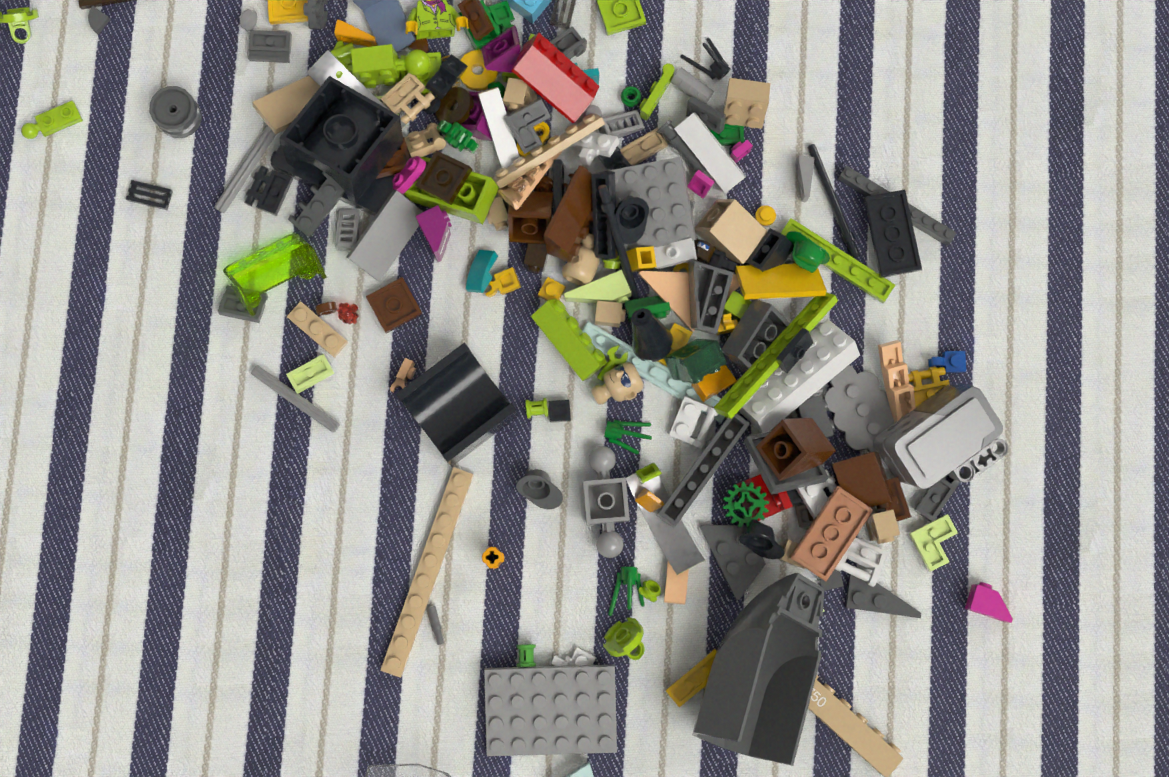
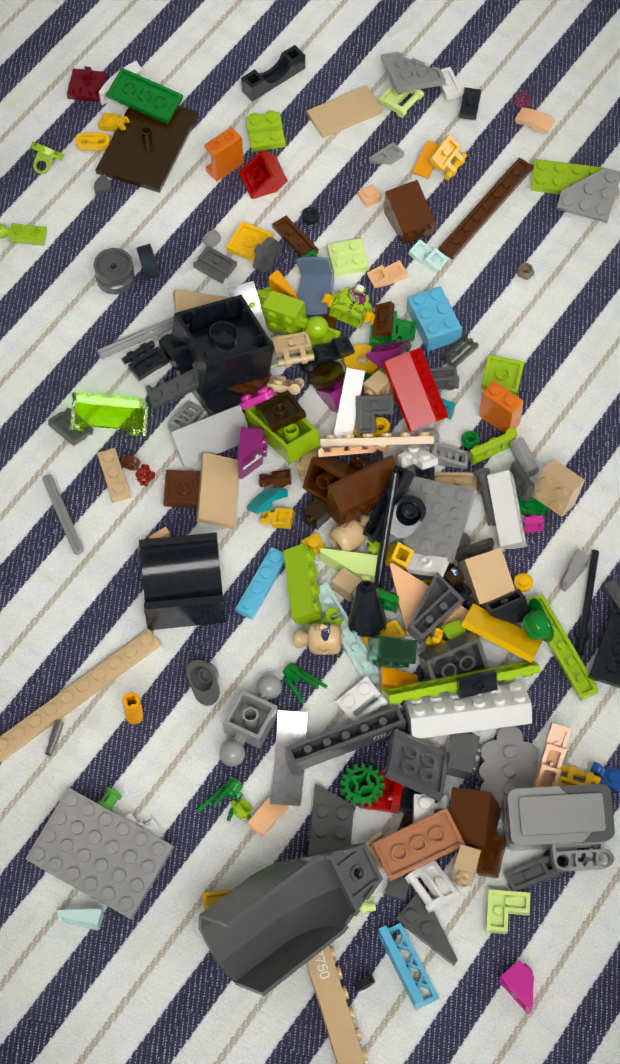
camera: 35 degrees right, 20 degrees down
(134, 184) = (41, 313): black tile -> none
(203, 82) = (148, 261): none -> black wheel
(310, 373) = (86, 501): yellowish green plate -> none
(428, 288) = (218, 490): none -> tan tile
(458, 136) = (313, 394): green gear -> none
(476, 242) = (277, 478): none -> reddish brown plate
(528, 358) = (261, 584): none -> medium azure plate
(536, 408) = (243, 622): lime bush -> none
(559, 411) = (259, 634): black plate -> none
(624, 638) = (194, 832): lime tile -> none
(644, 49) = (500, 407): none -> orange brick
(648, 473) = (298, 717): lime slope -> none
(649, 500) = (285, 738): light orange slope -> none
(700, 184) = (484, 529): dark pink plate -> none
(705, 207) = (474, 549): none -> clear smoke tile
(719, 66) = (554, 452): black plant -> none
(761, 540) = (355, 817): black piece -> none
(795, 447) = (429, 754): reddish brown slope -> none
(856, 683) = (364, 983): none -> black tile
(881, 652) = (401, 966): none -> medium azure fence

